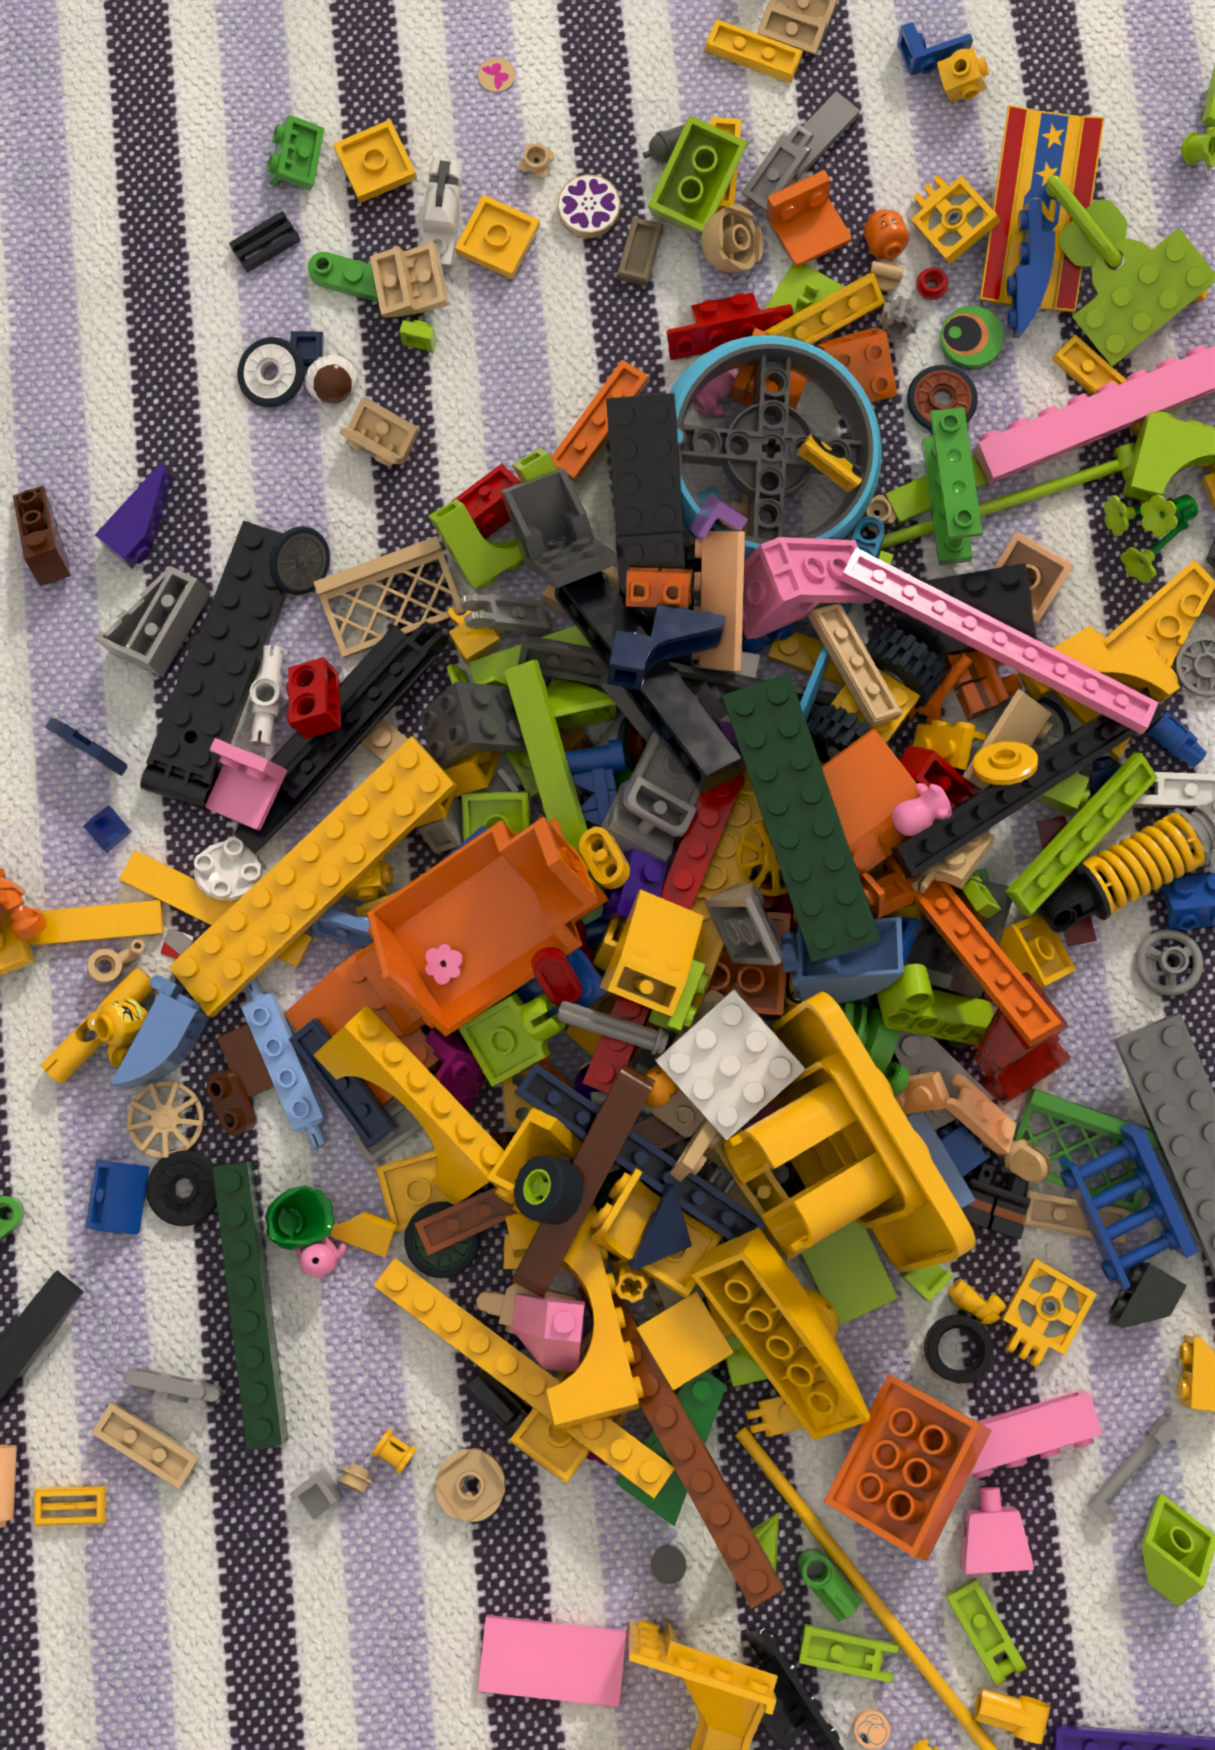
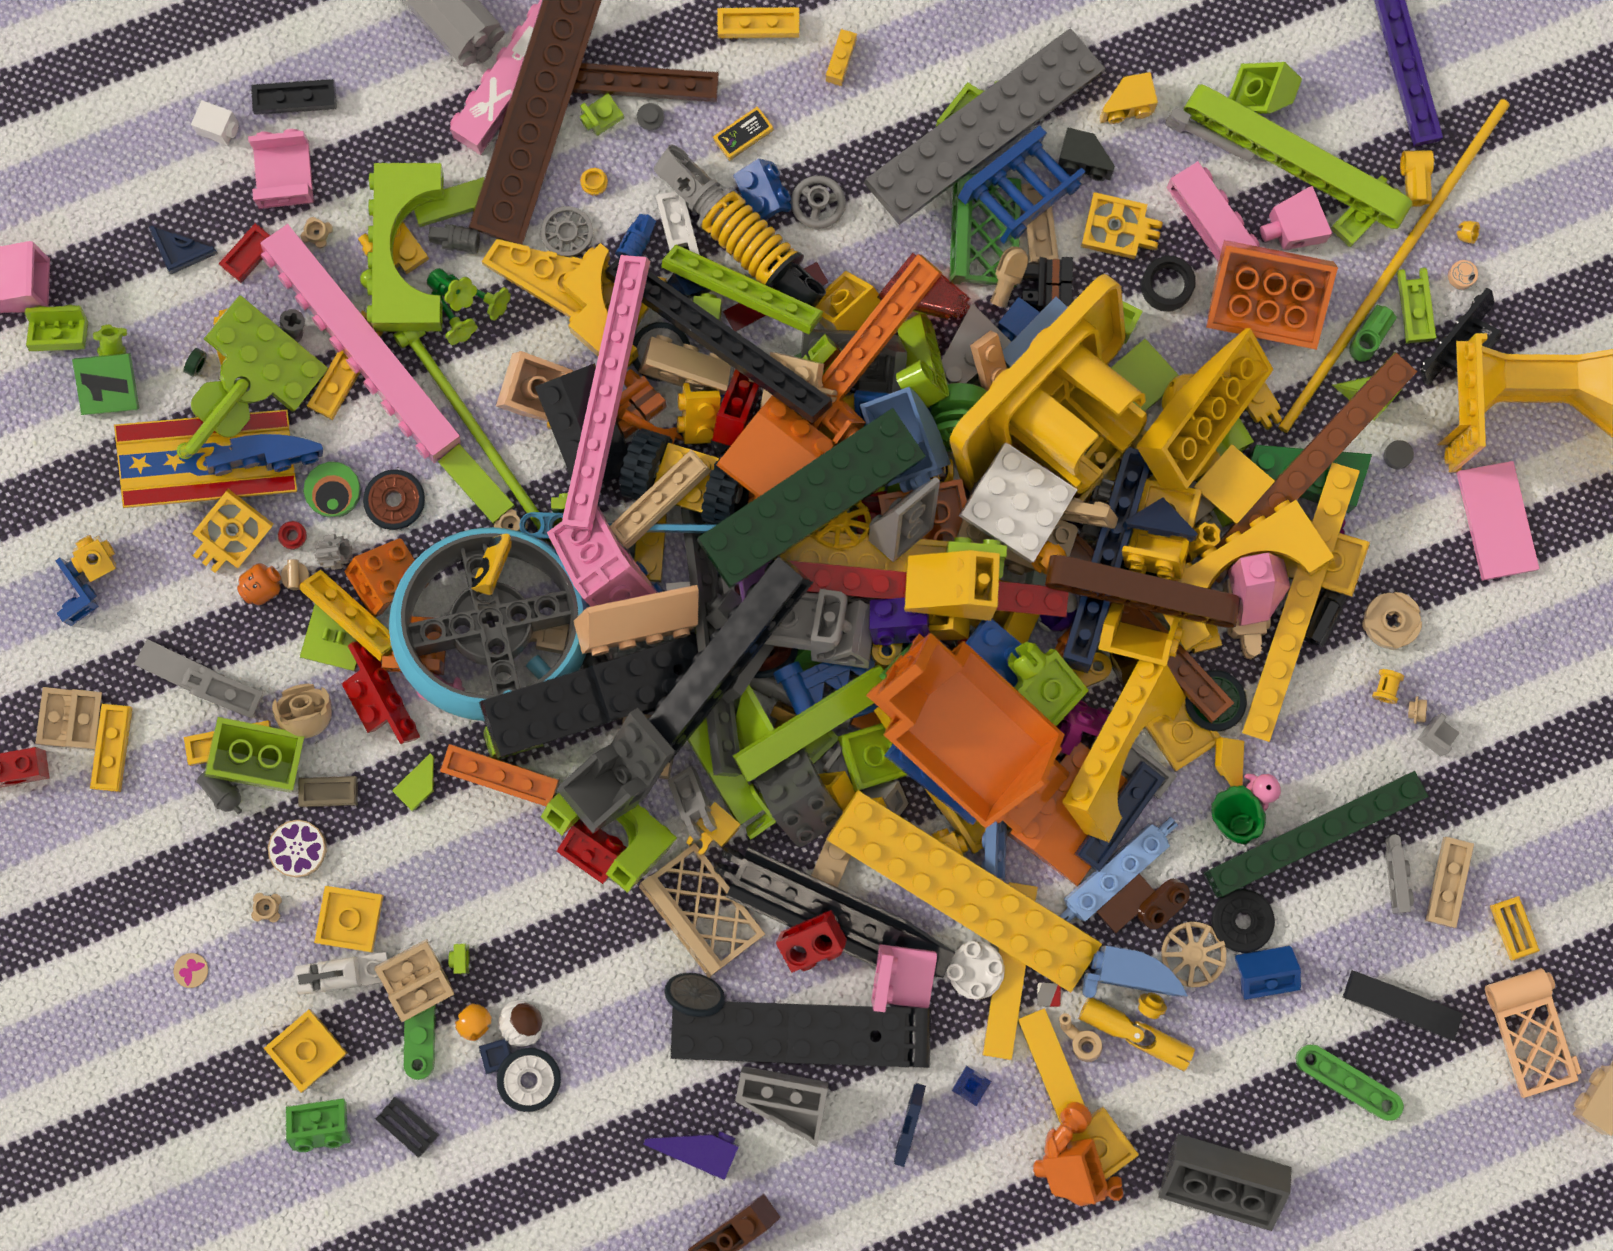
camera: 110 degrees left, 0 degrees up
(119, 1022) = (1132, 1010): yellow head -> none
(266, 711) = (802, 989): white pin -> none
(348, 331) = (473, 1022): none -> light orange piece
(380, 433) = (559, 963): tan bracket -> none
(441, 973) = (1014, 751): bright pink plant -> none
(548, 1190) = (1162, 611): black wheel -> none
(556, 975) = (993, 656): red tile -> none
(605, 860) = (886, 647): yellow plate -> none
(613, 1027) = (1017, 575): light grey axle -> none
(619, 342) = (417, 784): none -> lime tile
(650, 587) = (650, 668): orange hips -> none
(673, 635) = (686, 646): dark blue arch -> none
(710, 511) = (571, 642): medium lavender panel -> none
(806, 219) = (266, 653): orange bracket -> none
(897, 1077) = (983, 378): bright green tile -> none
(918, 813) = (779, 407): bright pink animal -> none
(951, 486) = (480, 465): bright green fence -> none
(970, 1301) = (1130, 279): yellow arm -> none
(981, 1116) = (991, 307): light nougat hinge -> none
(1005, 763) = (711, 357): yellow wheel -> none
(1075, 1565) = (1298, 156): none -> lime beam
(1155, 228) = (195, 362): none -> dark green tile
(1156, 132) = (105, 383): none -> bright green tile
(1179, 335) = (292, 323): none -> dark grey bush

